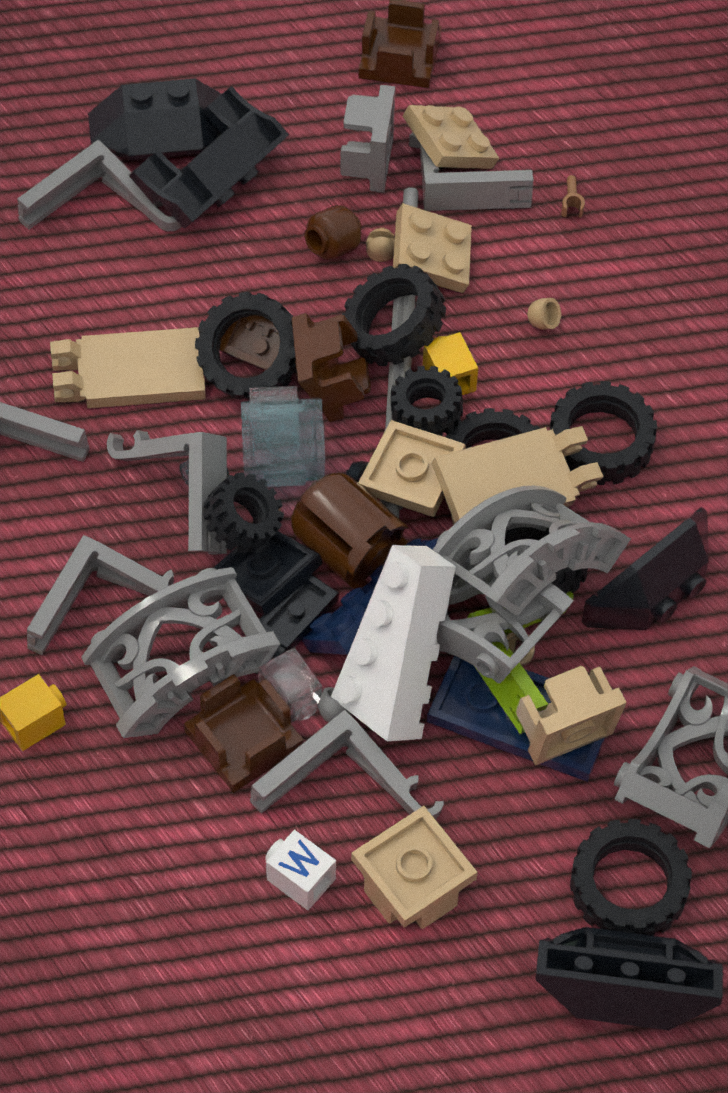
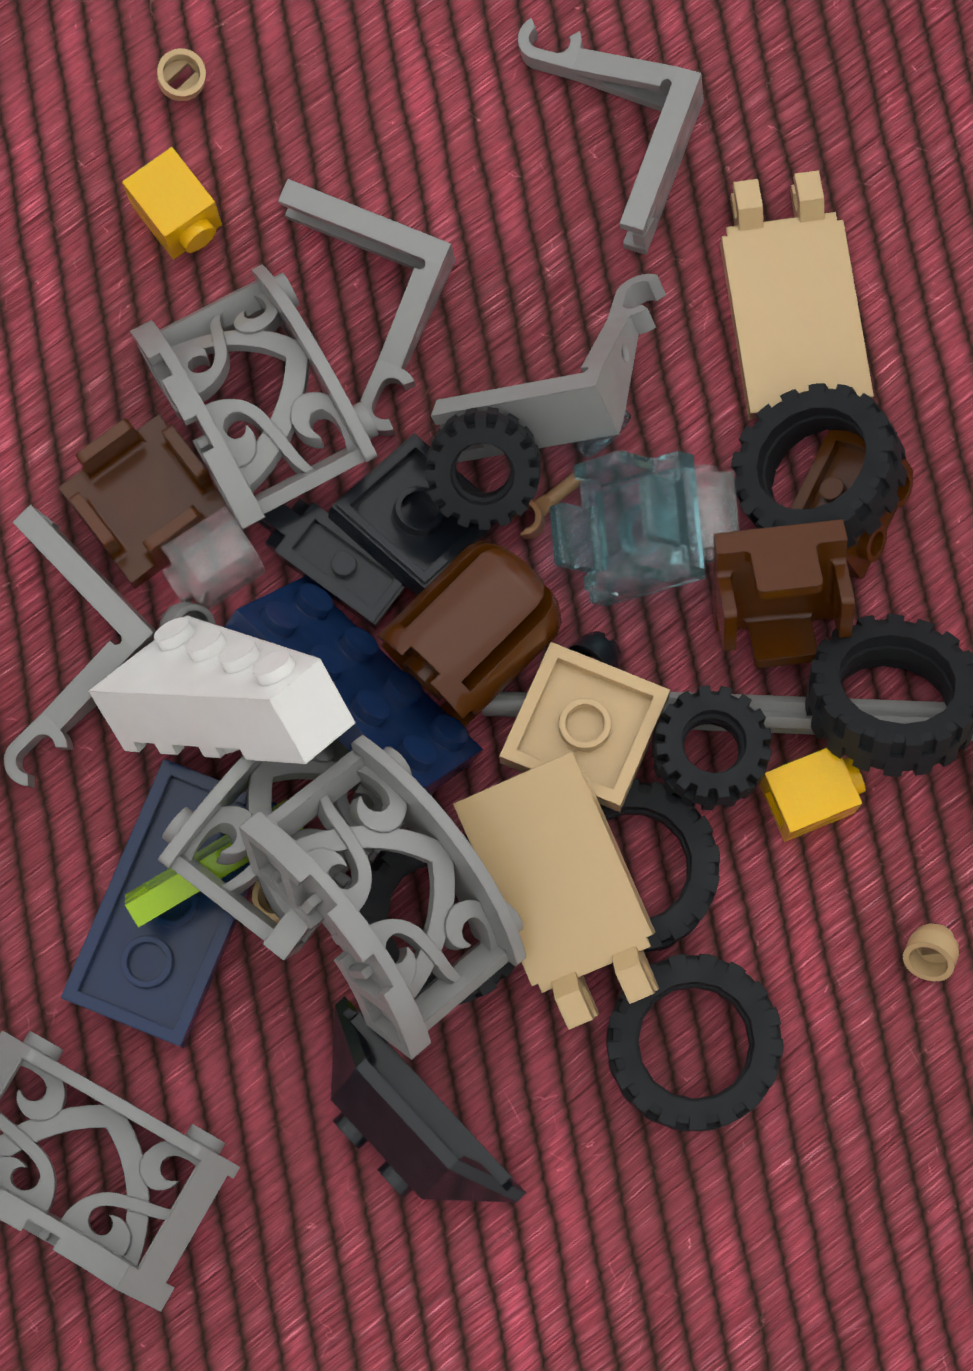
camera: 95 degrees right, 20 degrees up
(579, 713) = (111, 958): tan panel -> none

